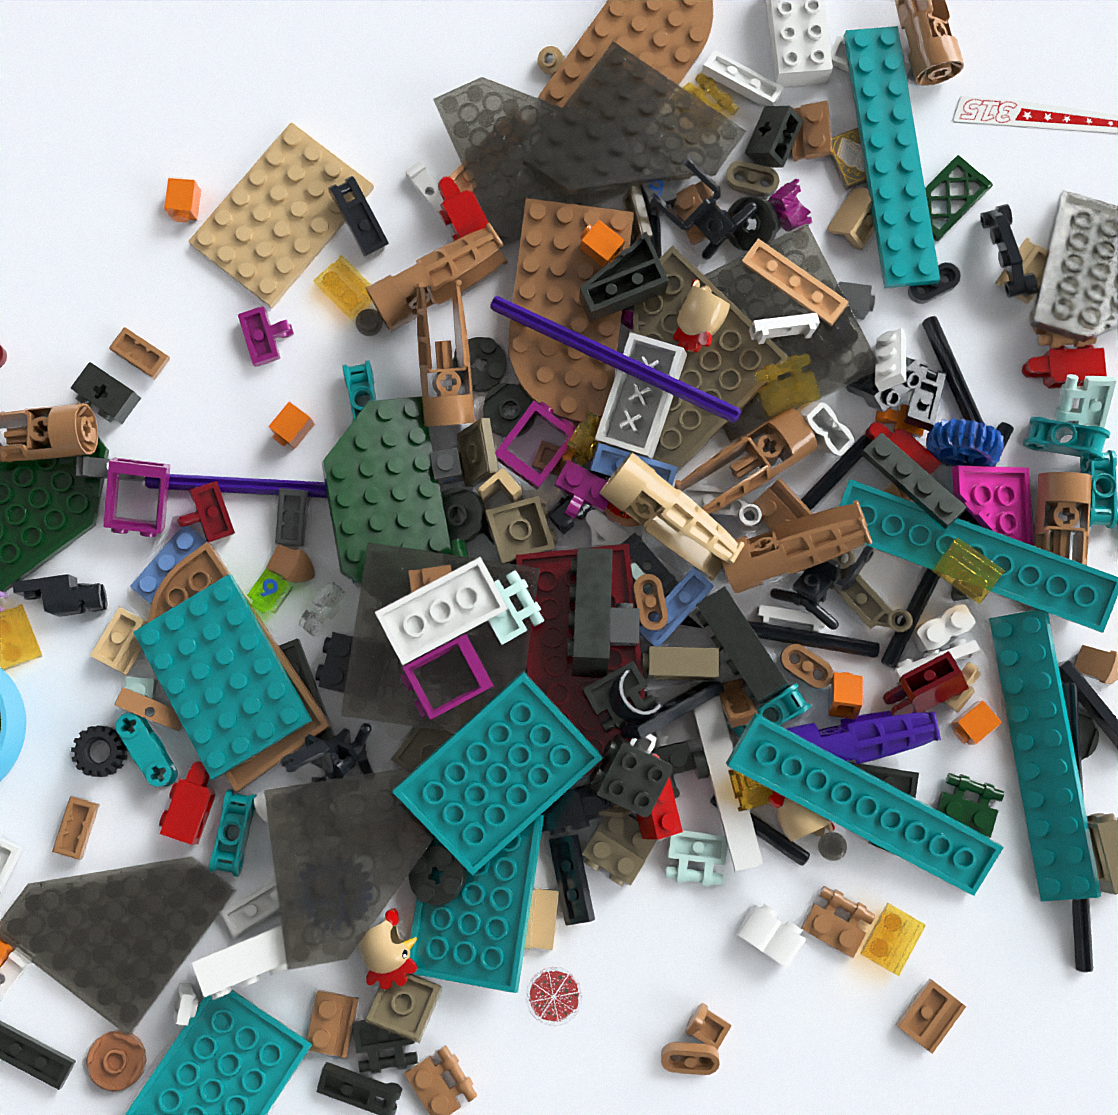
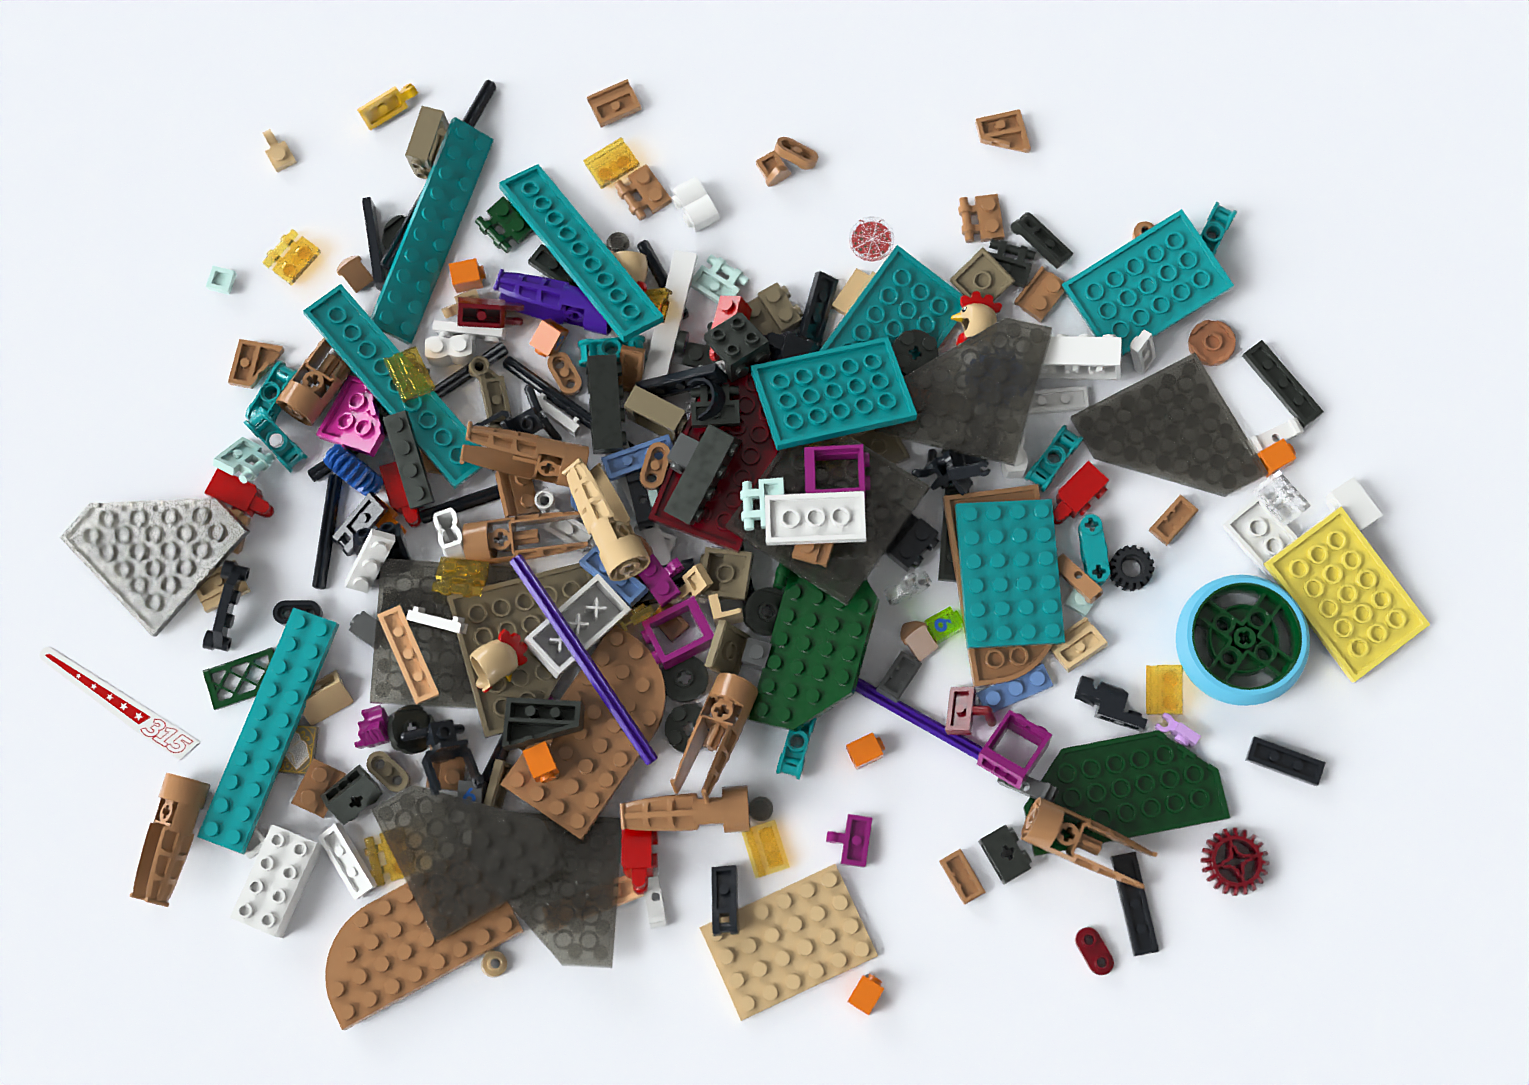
camera: 150 degrees left, 5 degrees down
(543, 503) = (696, 582): none -> tan plate

